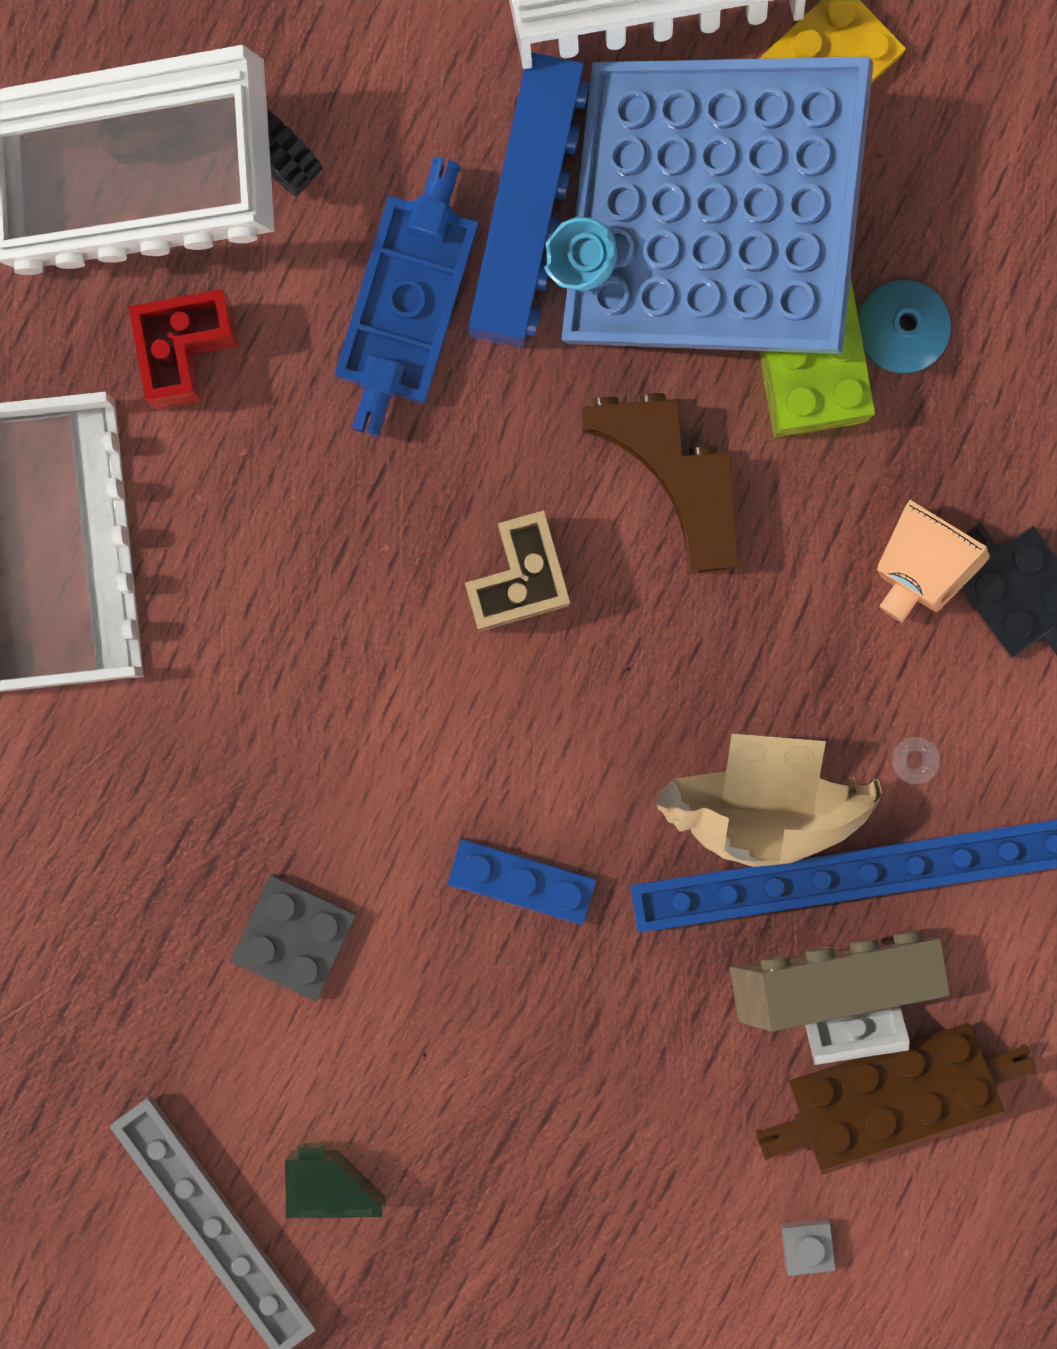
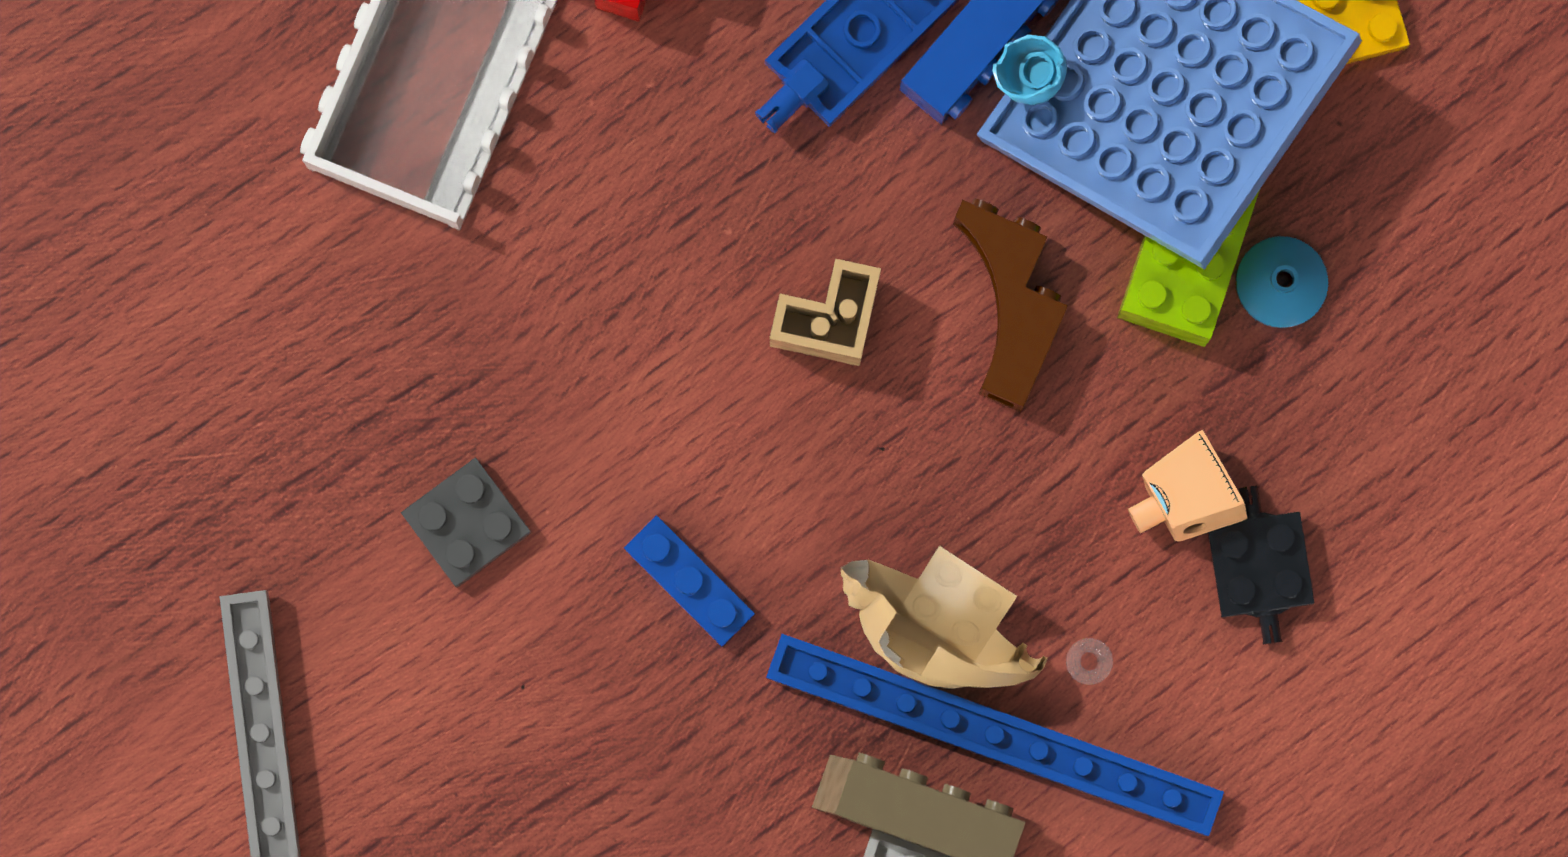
camera: 30 degrees right, 5 degrees down
(327, 1186) = (377, 749): clear green slope -> none

